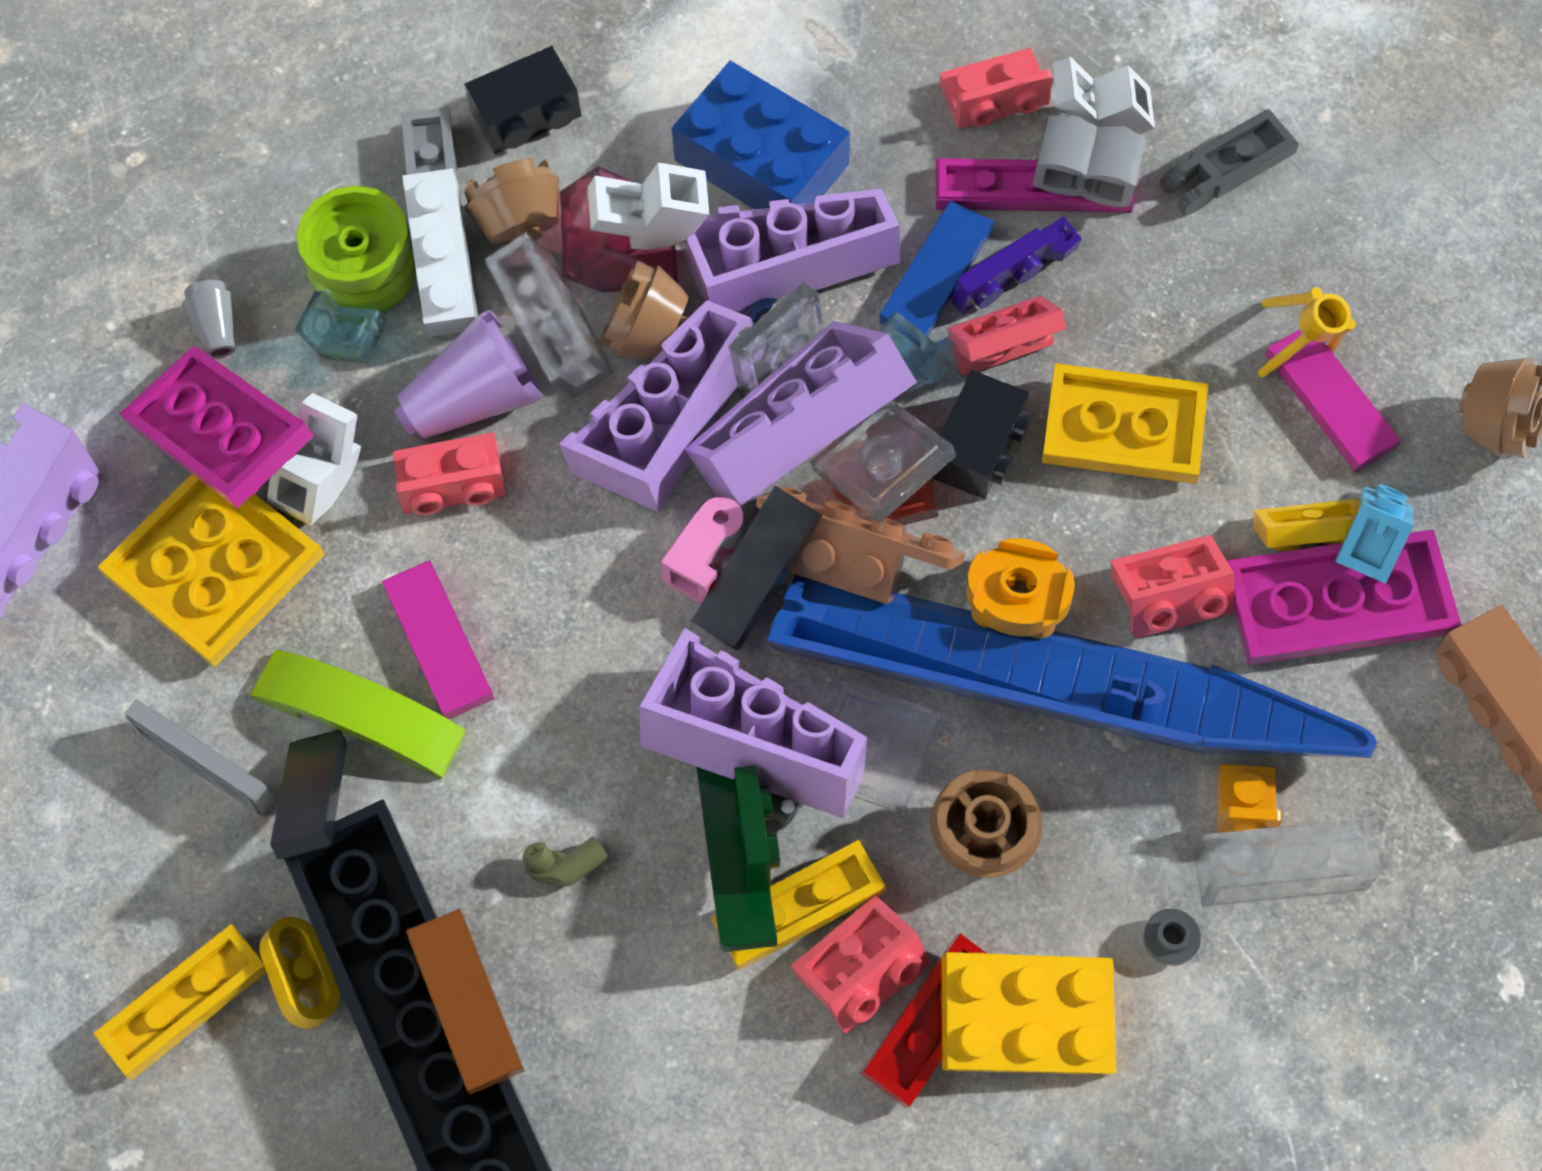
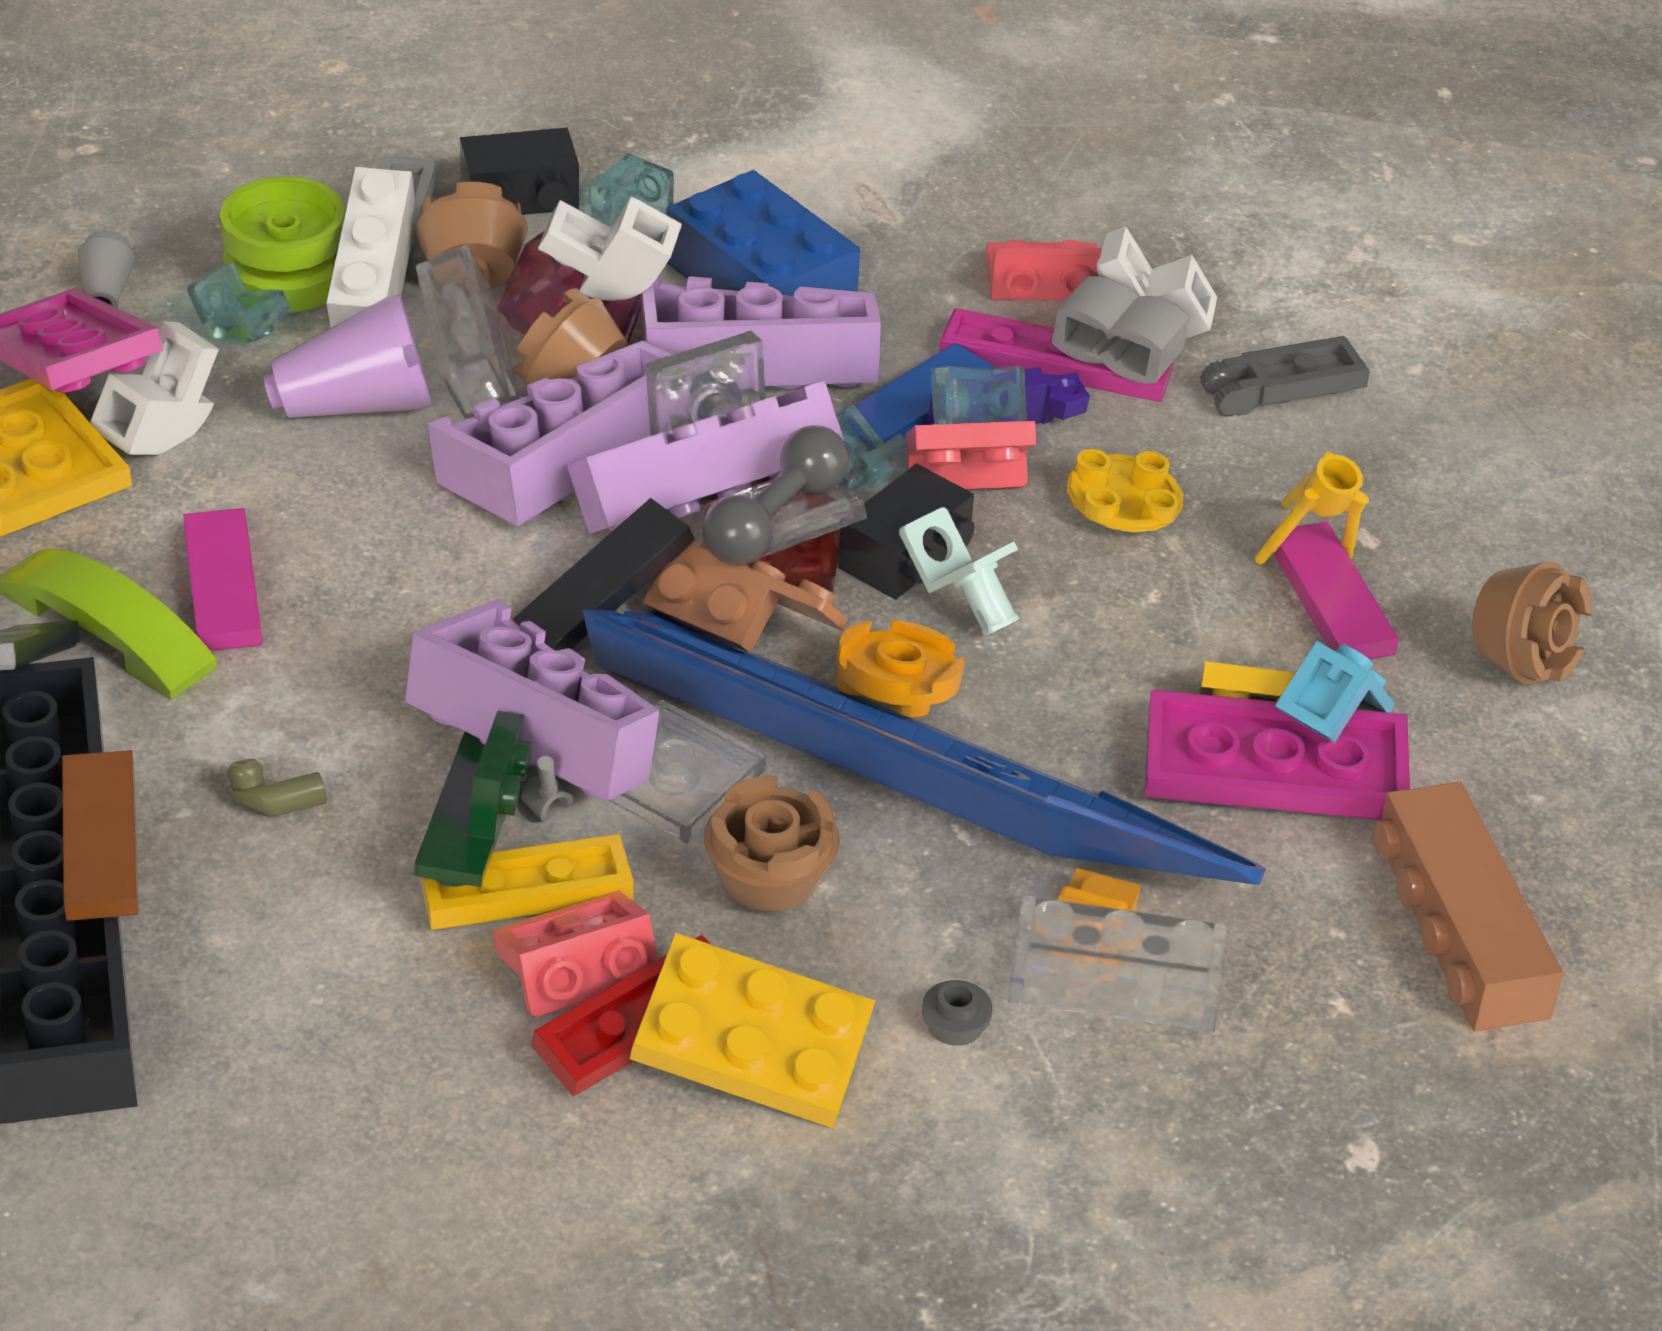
camera: 10 degrees right, 25 degrees down
(448, 474) = (298, 449): coral bracket -> none
(622, 90) = (629, 178): none -> clear light blue bracket
(702, 546) = (546, 555): bright pink leg -> none
(861, 504) = (741, 527): none -> dark grey piece
(1003, 286) = (978, 395): none -> clear light blue bracket
(1043, 475) = (974, 577): none -> light aqua bracket
(1125, 423) = (1084, 559): yellow plate -> none
(1138, 333) = (1125, 490): none -> yellow dish
(1175, 585) = (1083, 709): coral bracket -> none

